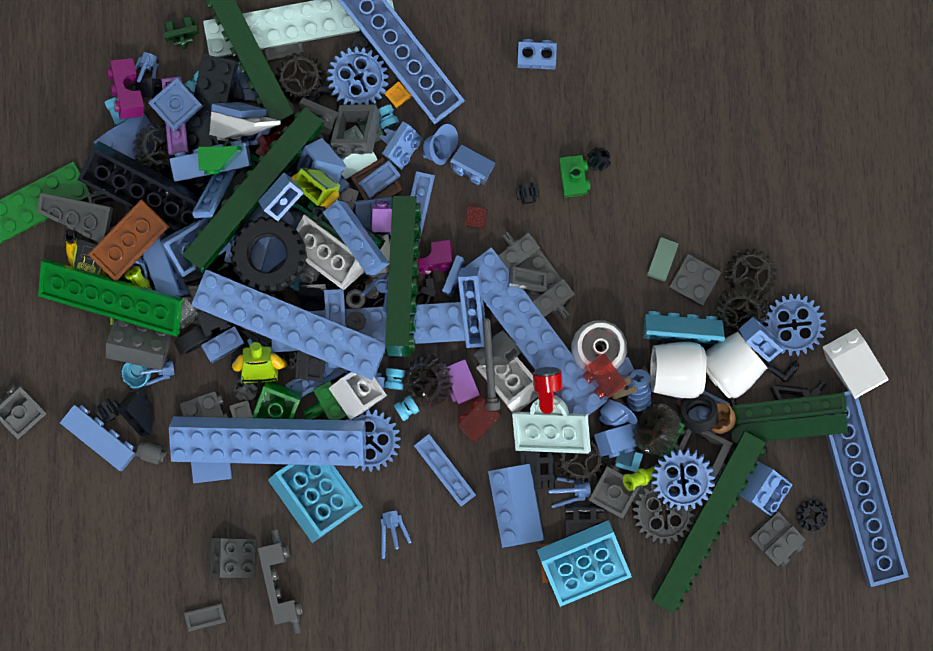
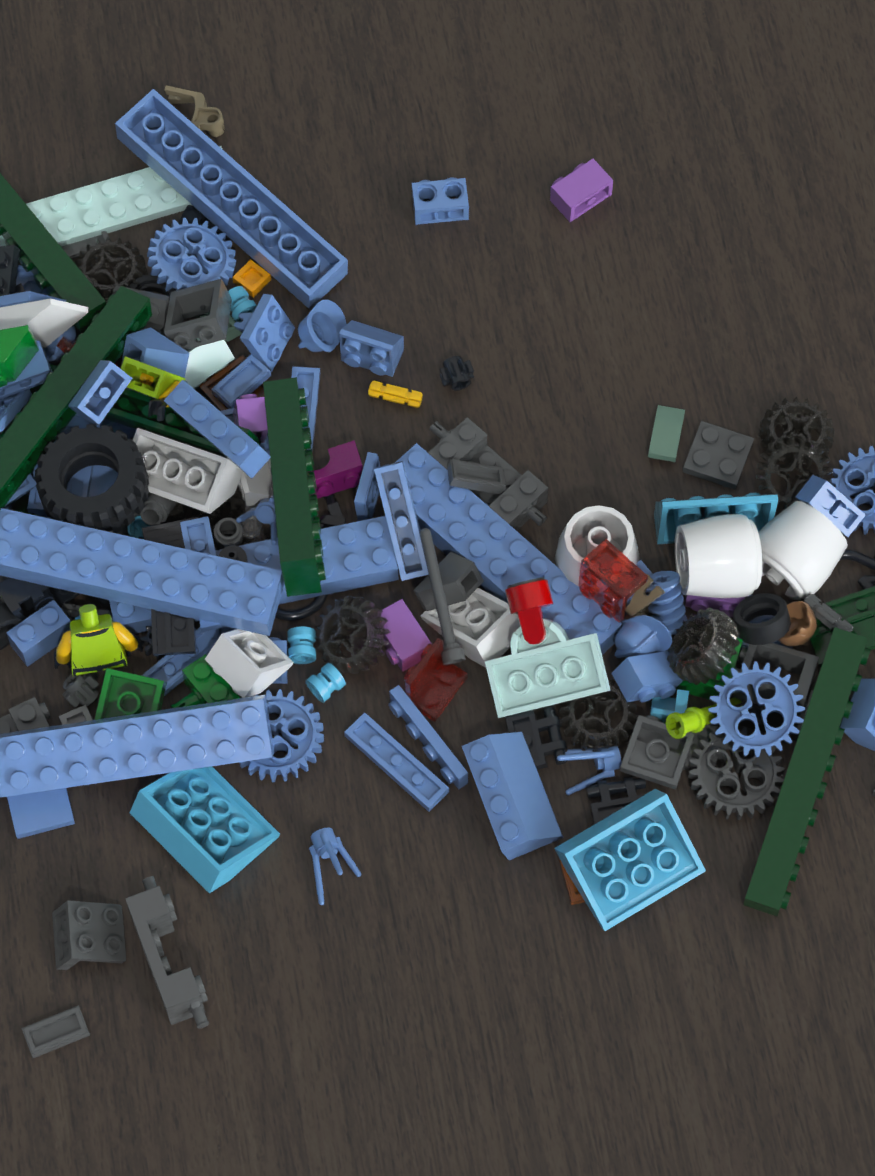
camera: 10 degrees left, 20 degrees down
(462, 450) = (434, 746): none -> medium blue plate
(475, 217) = (387, 417): clear red plate -> none
(483, 201) = (395, 394): none -> yellow axle
(573, 176) = (518, 343): green brick -> none
(598, 159) = (550, 316): black gear -> none
(636, 61) = (581, 190): none -> medium lavender brick
(744, 416) = (827, 615): none -> dark grey axle

